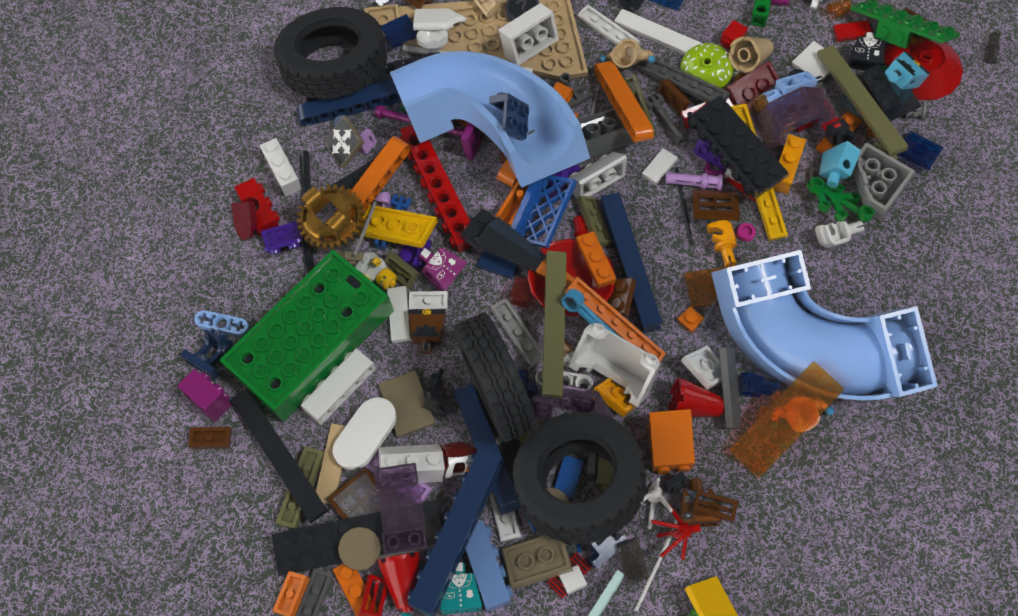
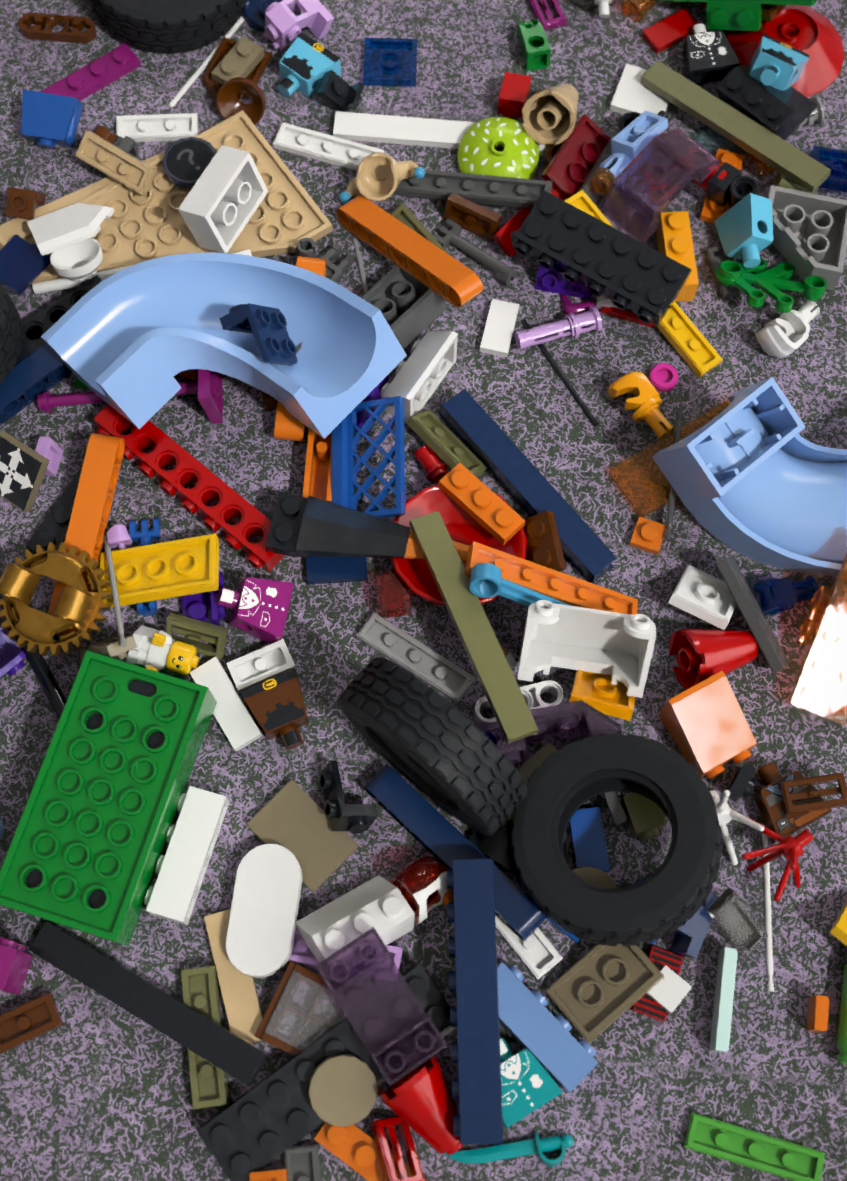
camera: 30 degrees left, 5 degrees up
(715, 205) = (606, 355): reddish brown piece -> none

